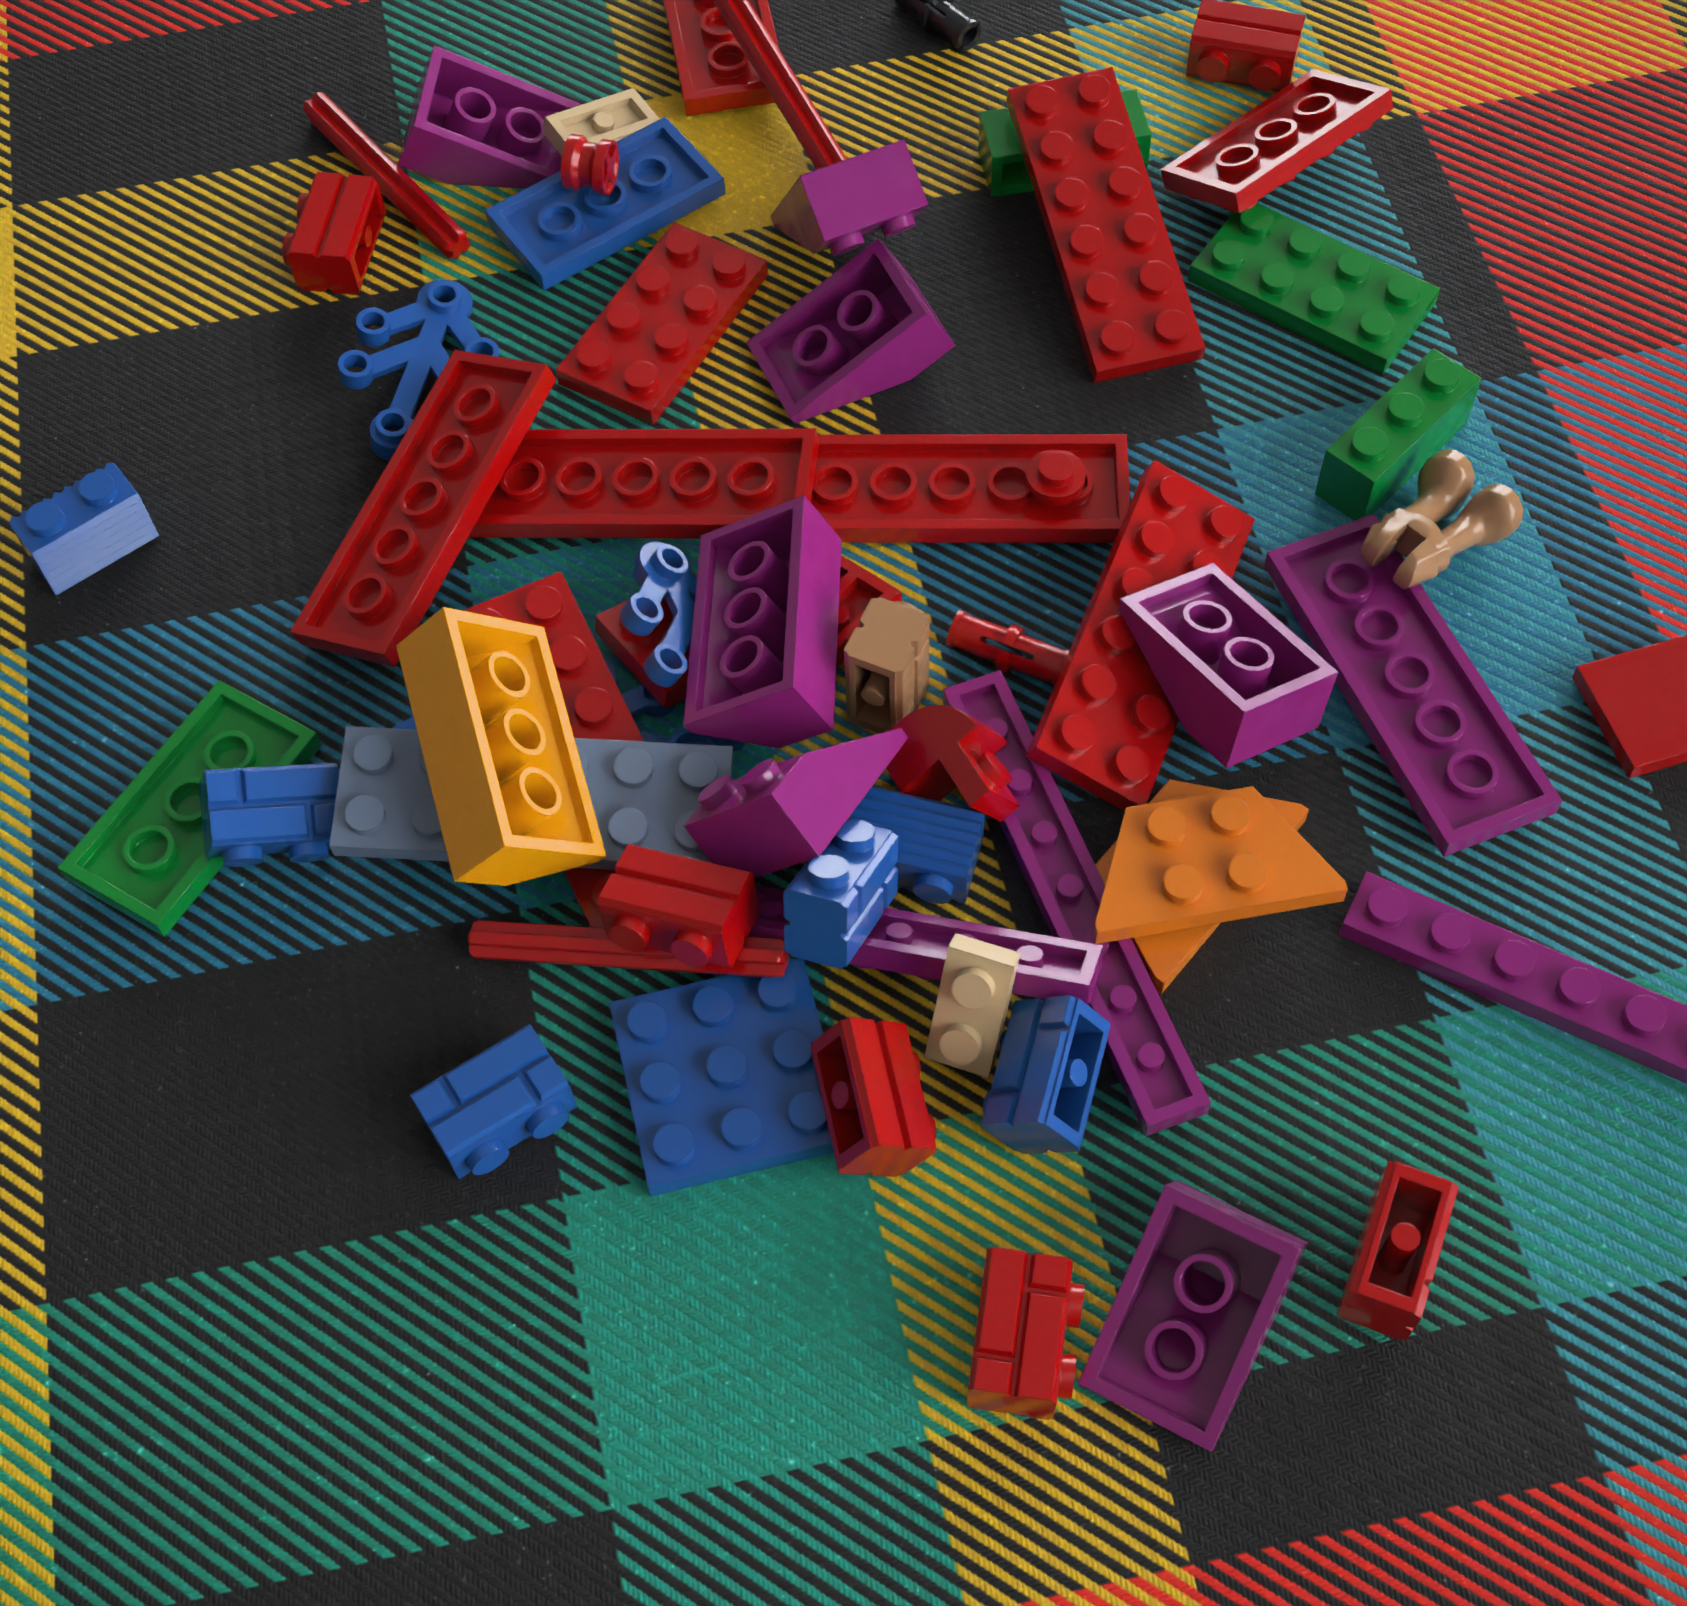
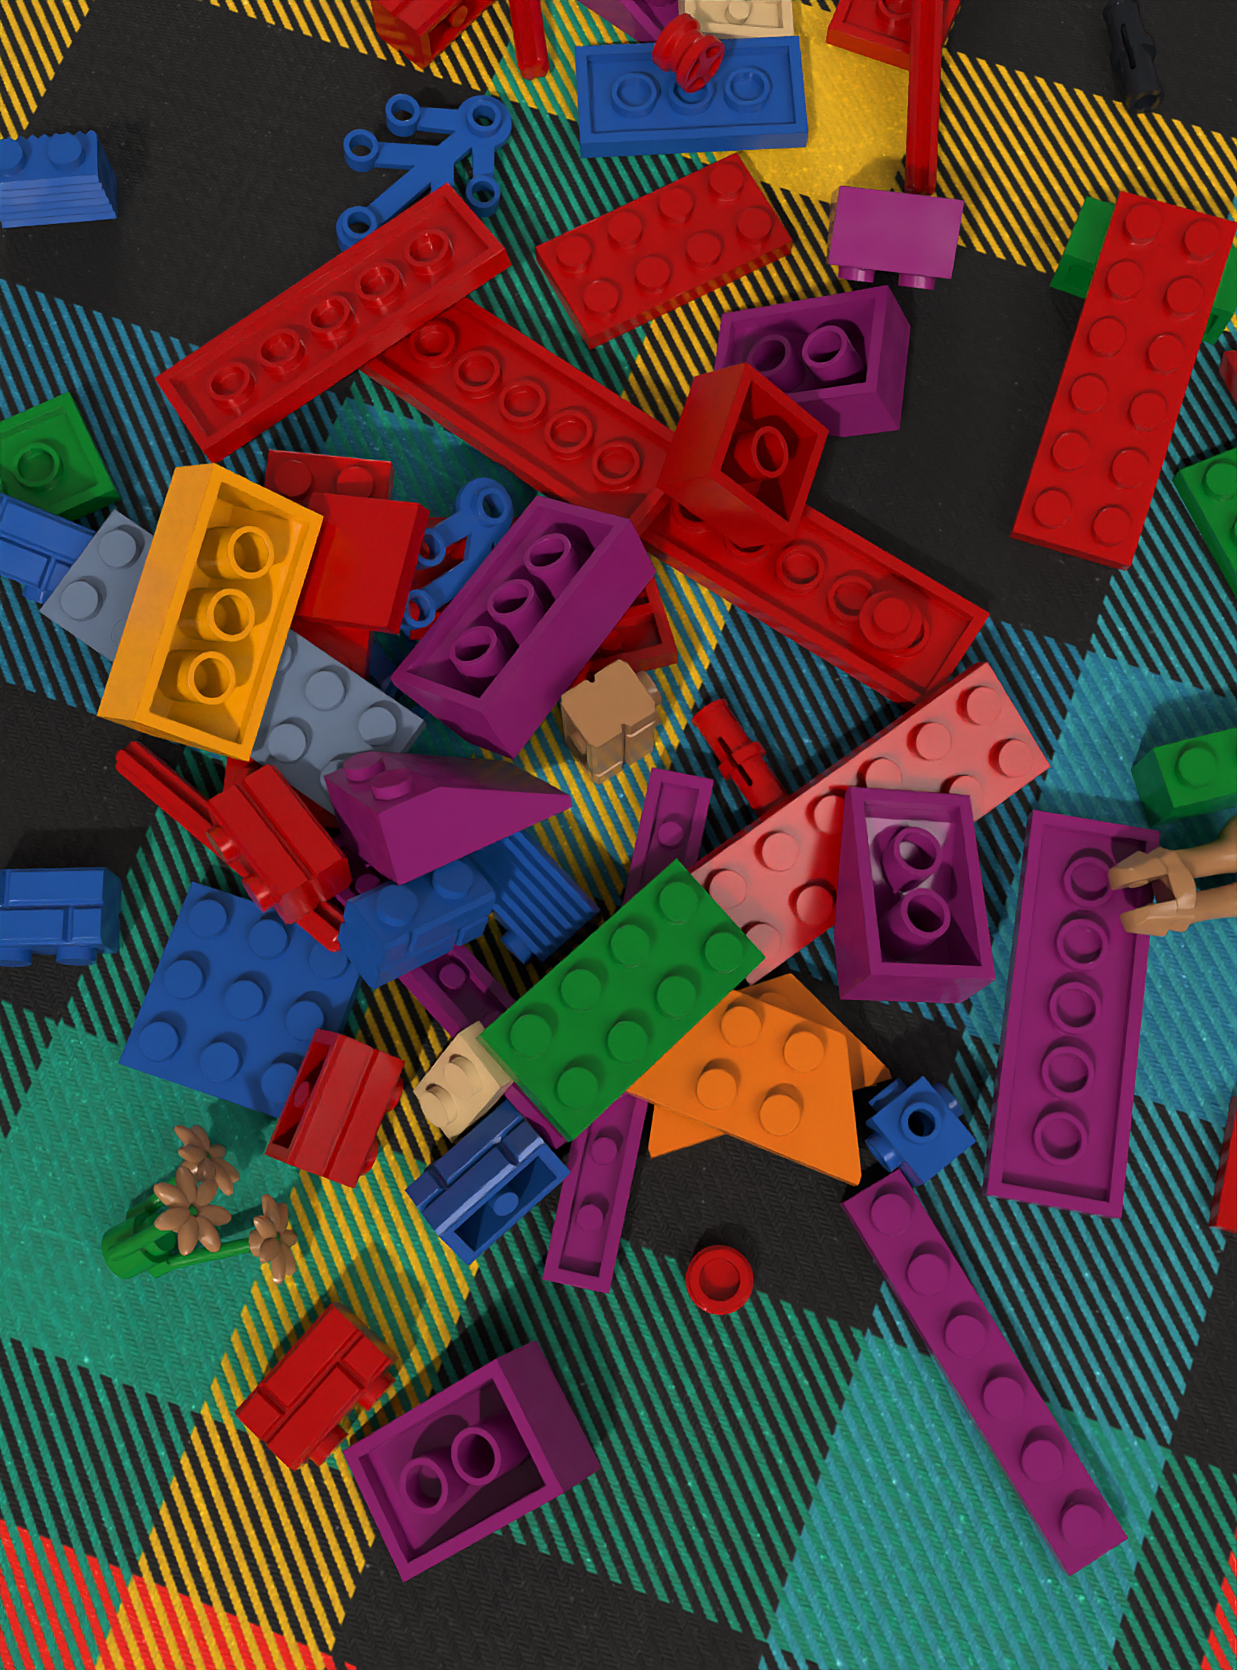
camera: 30 degrees right, 15 degrees up
(601, 646) = (362, 562): none -> red tile
(778, 1312) = (148, 1237): none -> medium nougat plant
(858, 409) = (743, 456): none -> red brick
(950, 752) = (607, 840): red brick -> none
(1059, 853) = (621, 1000): none -> green plate
(1288, 1047) = (719, 1279): none -> red tile
(1360, 827) = (940, 1131): none -> blue brick
(1398, 1250) = (662, 1532): red brick -> none

